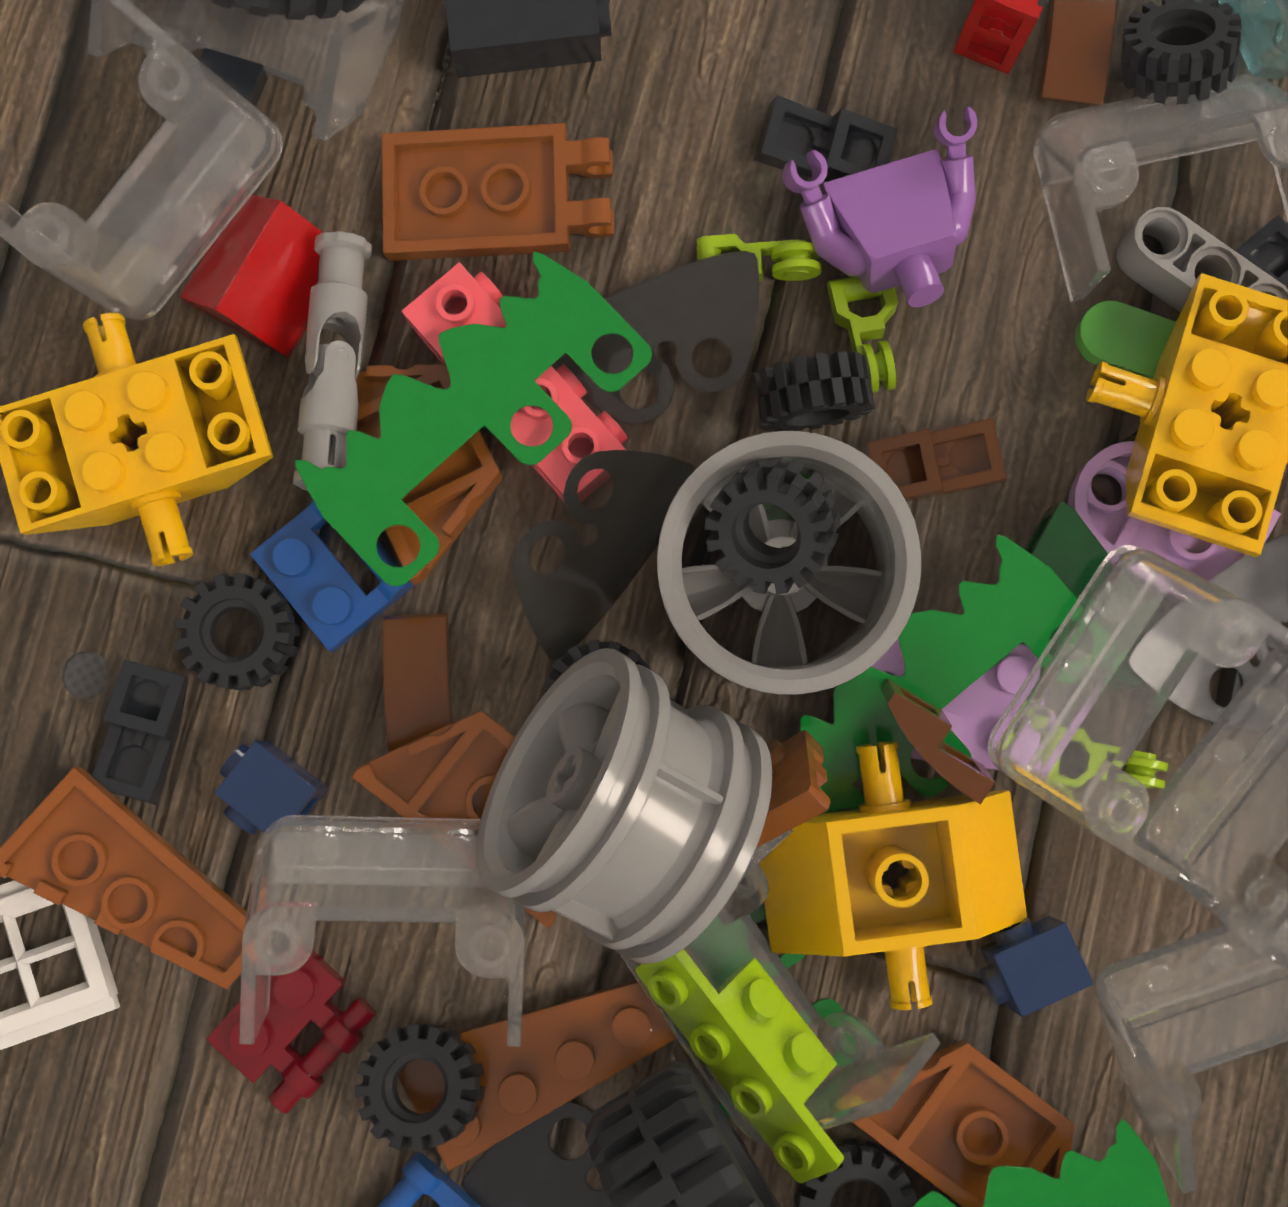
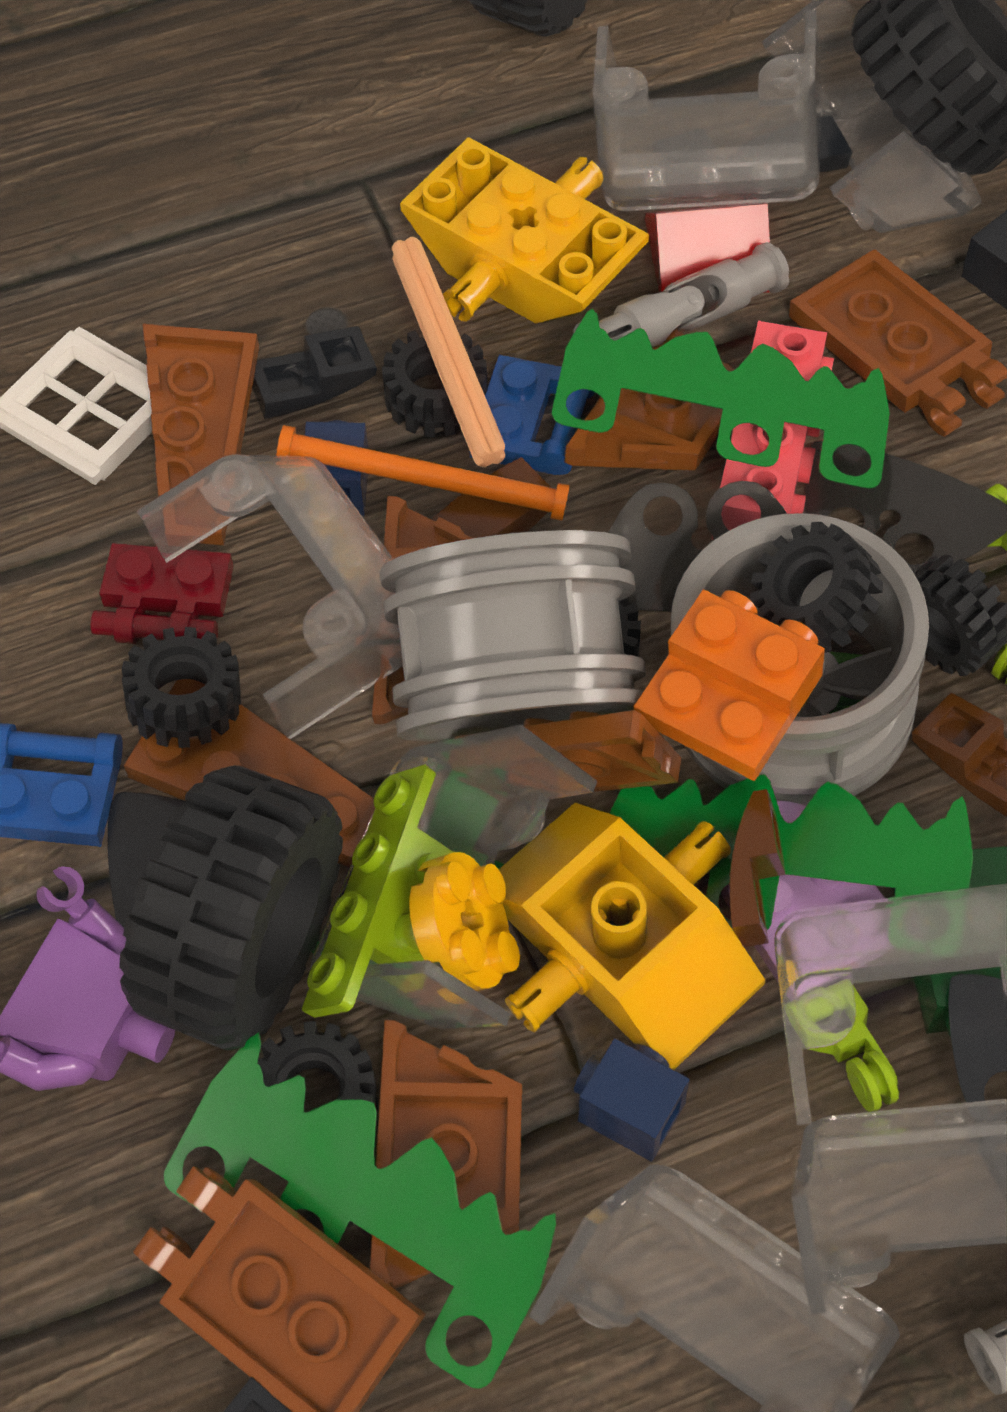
camera: 55 degrees right, 25 degrees down
(226, 610) = (448, 353): none -> light nougat axle
(347, 732) = (425, 473): none -> orange bar
(816, 671) = (732, 681): none -> orange plate
(828, 1015) = (462, 920): none -> yellow plate

